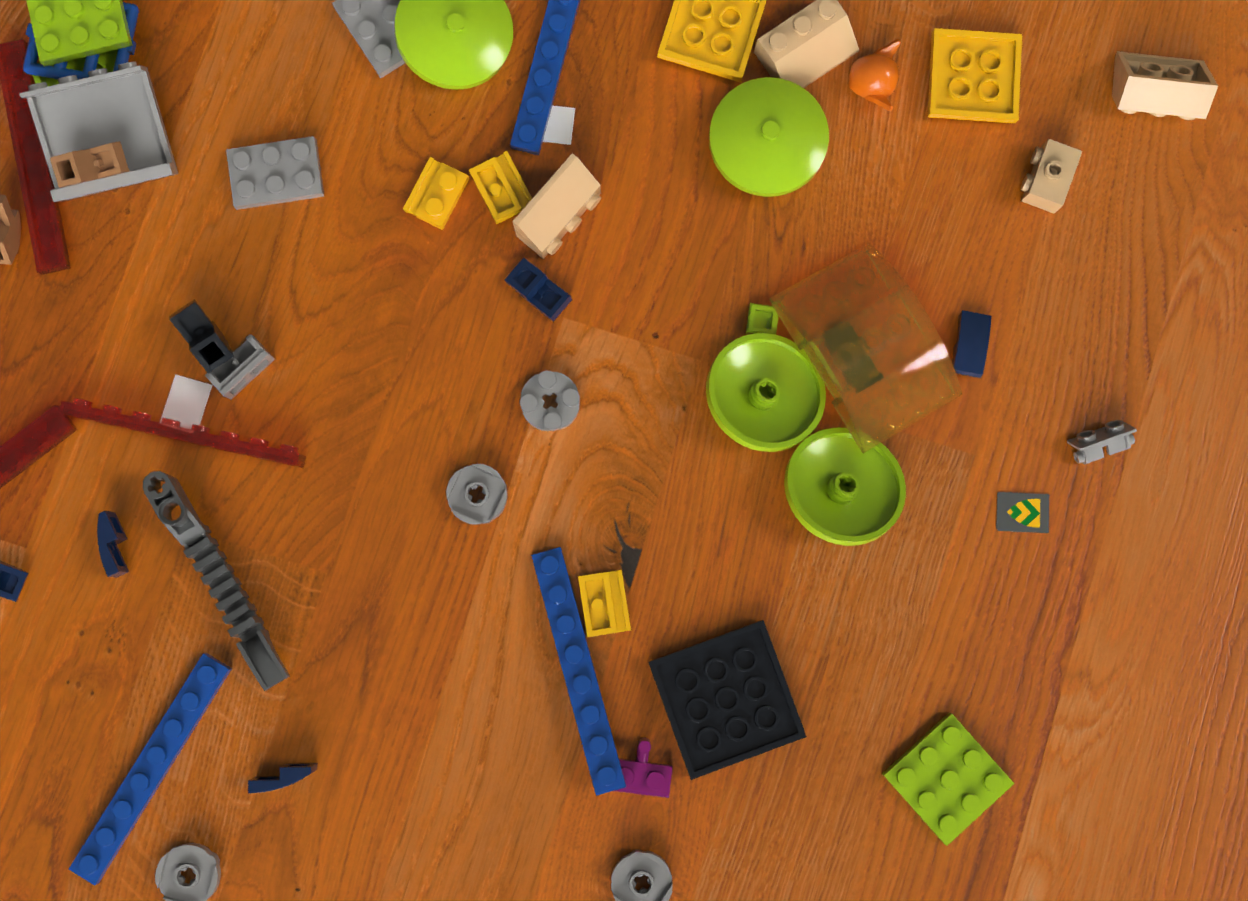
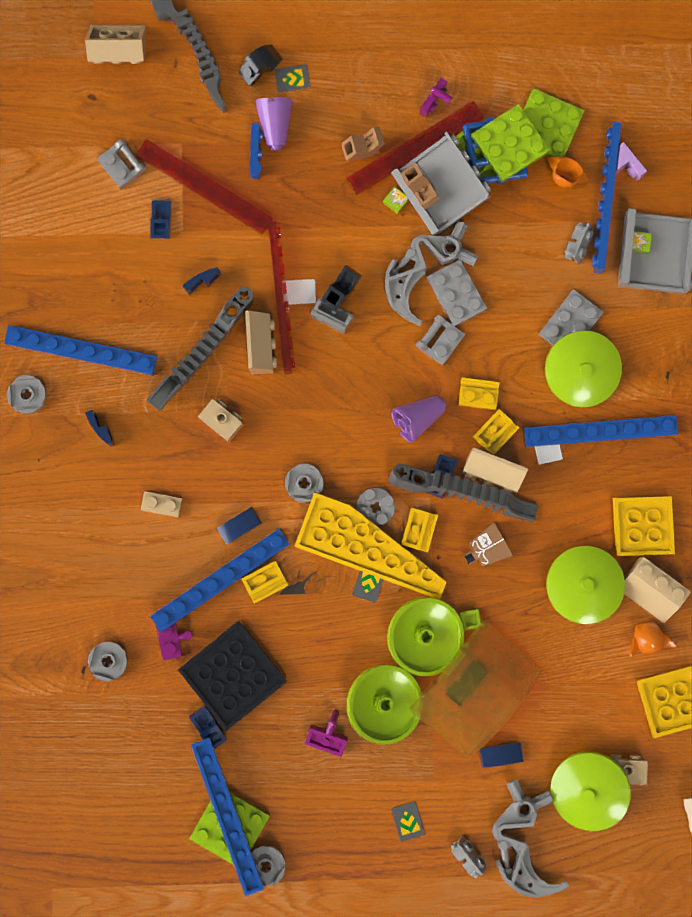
camera: 75 degrees right, 0 degrees up
(101, 212) = (395, 200): none -> tile
(197, 176) = (436, 246): none -> light grey piece
(240, 486) = (260, 342): none -> tan slope
(337, 586) = (221, 420): none -> tan brick
(344, 215) = (445, 344): none -> light grey plate
(432, 721) = (161, 504): none -> tan plate
(437, 292) = (417, 416): none -> medium lavender cone
(506, 613) = (239, 525): none -> dark blue slope
(519, 341) = (403, 478): none -> dark grey piece
(584, 453) = (350, 538): none -> yellow wing
(606, 348) = (419, 530): none -> yellow plate
(658, 450) = (367, 587): none -> dark grey sticker
(666, 257) = (488, 547): none -> medium nougat torso
(792, 762) = (208, 726): none -> dark blue slope
(867, 588) = (326, 738): none -> magenta plate
(933, 776) = (227, 816): none -> blue plate
(1039, 745) = (277, 864): none -> light grey plate
(1065, 233) = (590, 791): none -> lime dish
(1069, 358) = (514, 819): none -> light grey piece

